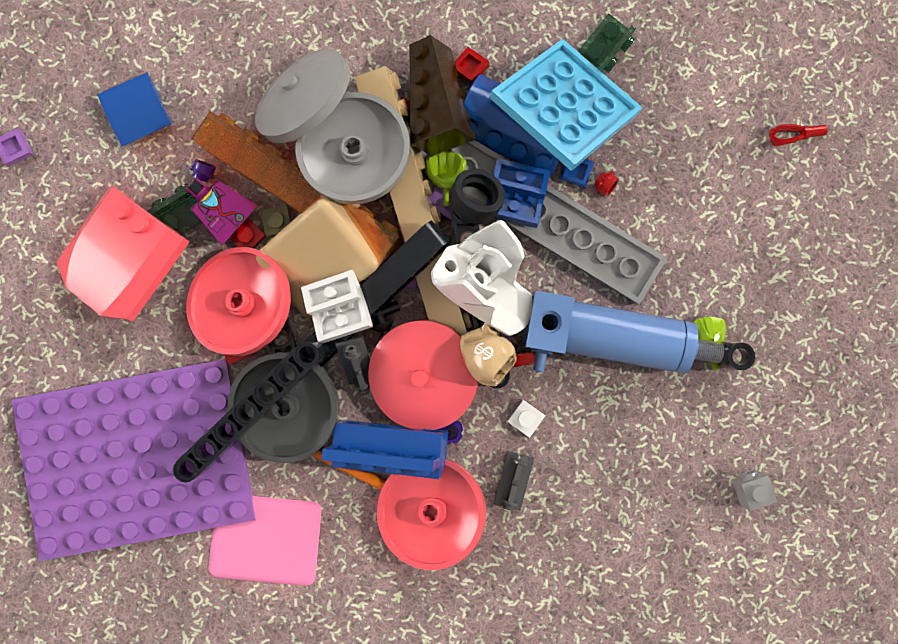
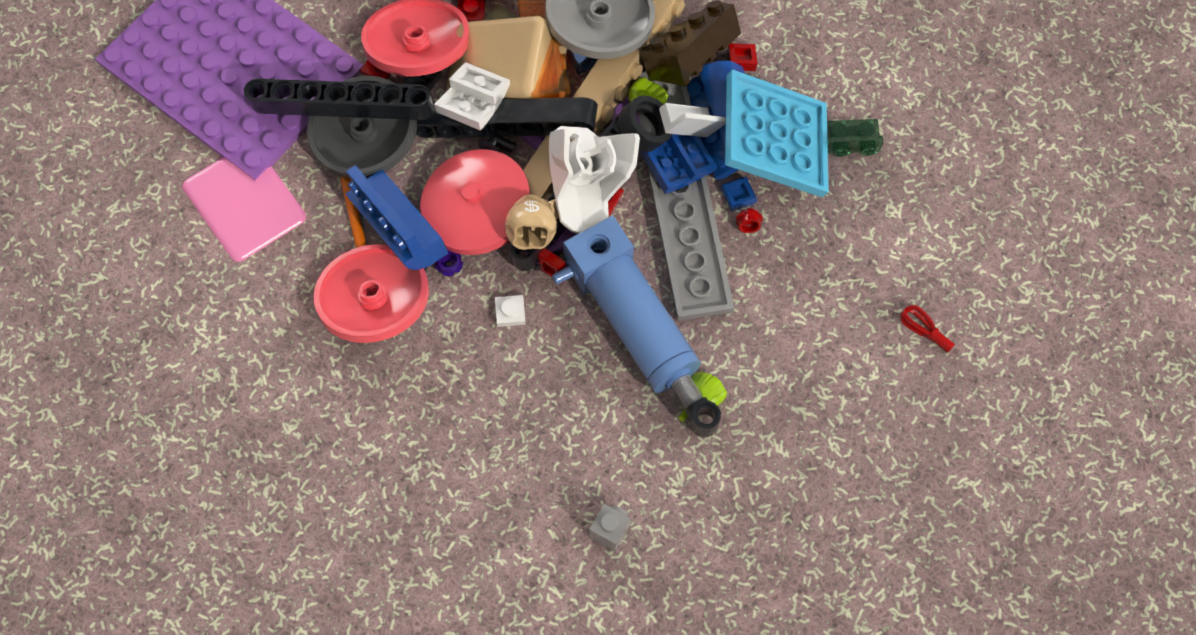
camera: 50 degrees right, 20 degrees down
(355, 362) = (444, 146): dark grey hinge -> none
(500, 160) = (689, 120): none -> white panel
(514, 481) = (452, 341): dark grey hinge -> none

